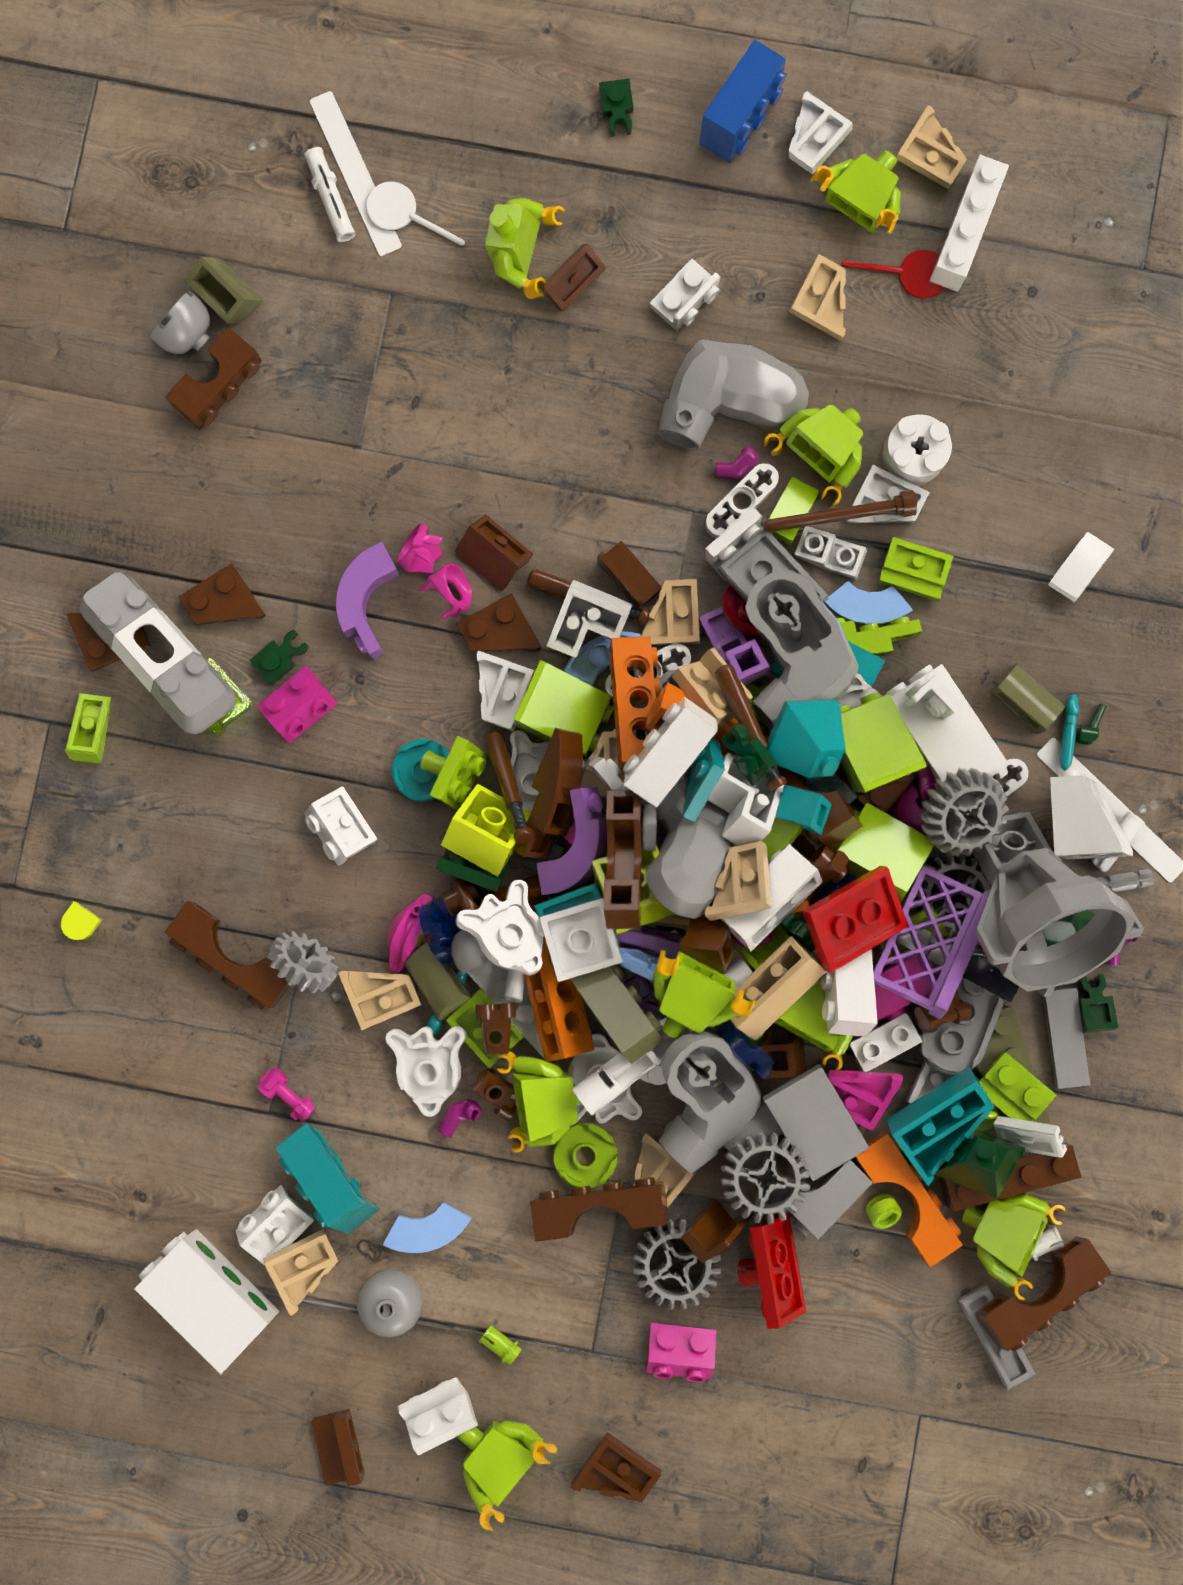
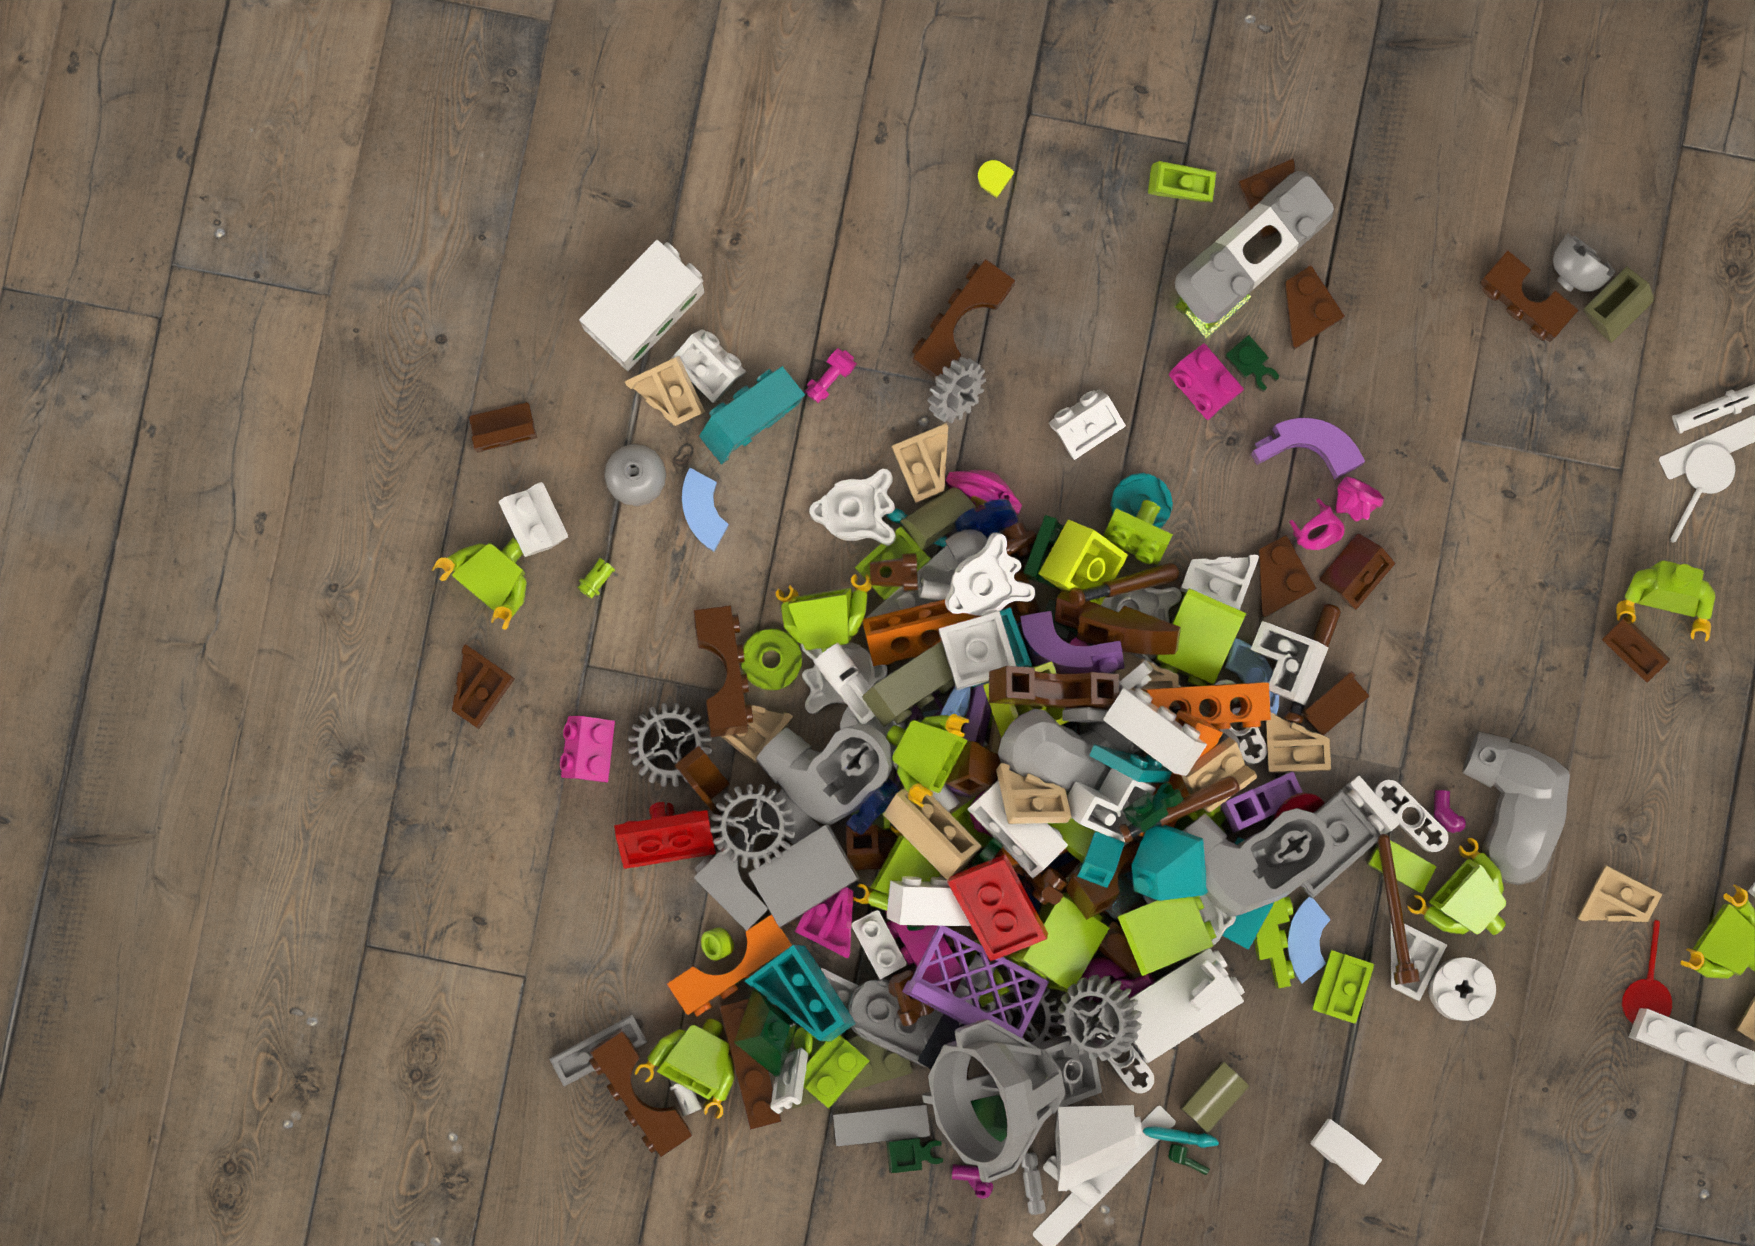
camera: 90 degrees right, 0 degrees up
(459, 1112) = (812, 538): magenta arm -> none
(497, 1093) = (826, 578): reddish brown plate -> none
(685, 294) = (1621, 762): white bracket -> none
(830, 553) = (1359, 903): white slope -> none

